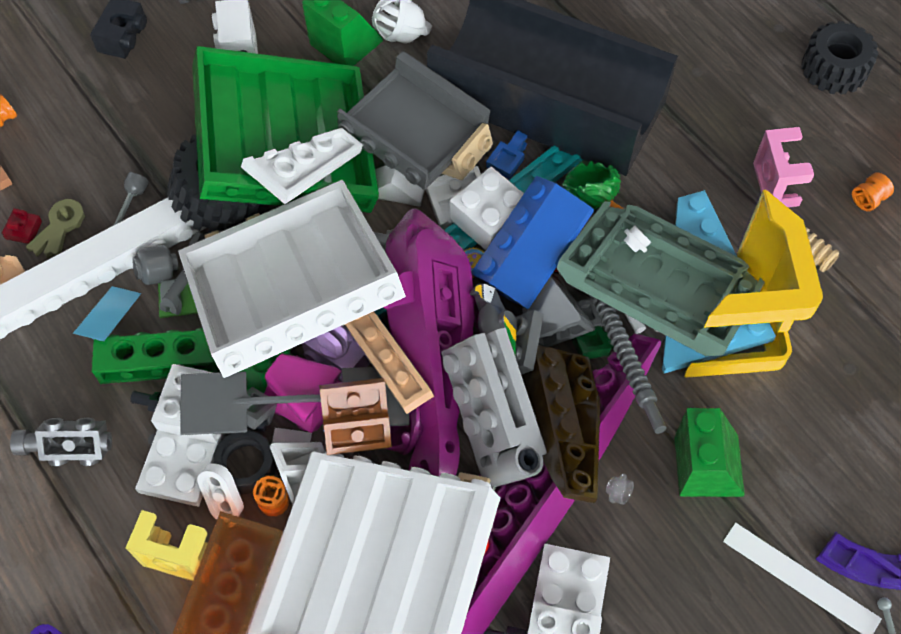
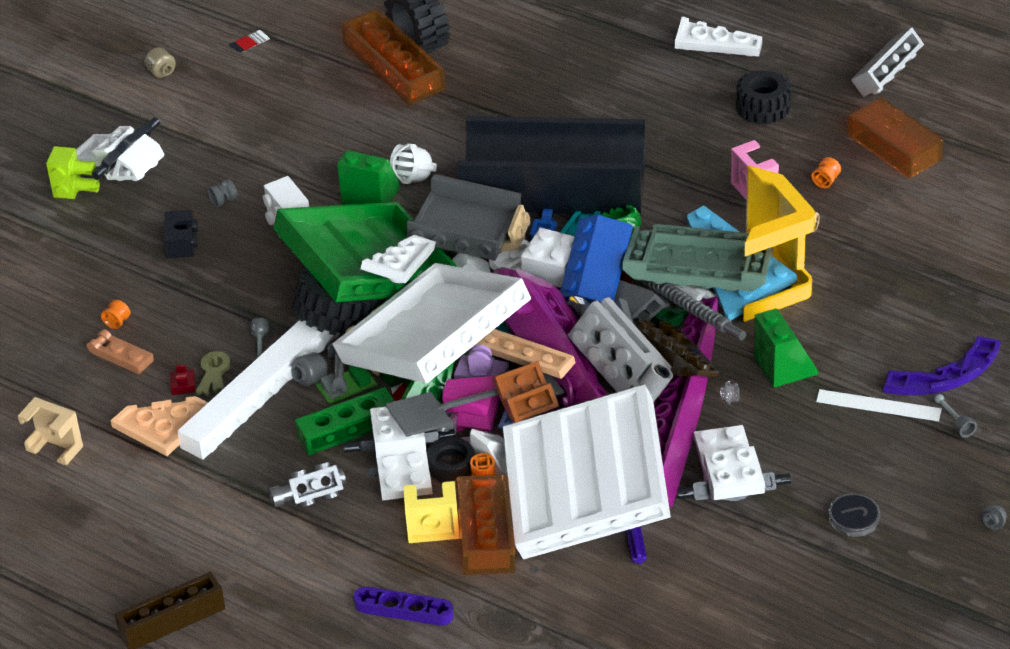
camera: 20 degrees left, 20 degrees down
(107, 313) = (291, 407): medium azure sticker -> none
(220, 491) = (446, 473): white plate -> none
(636, 239) = (670, 238): white plate -> none

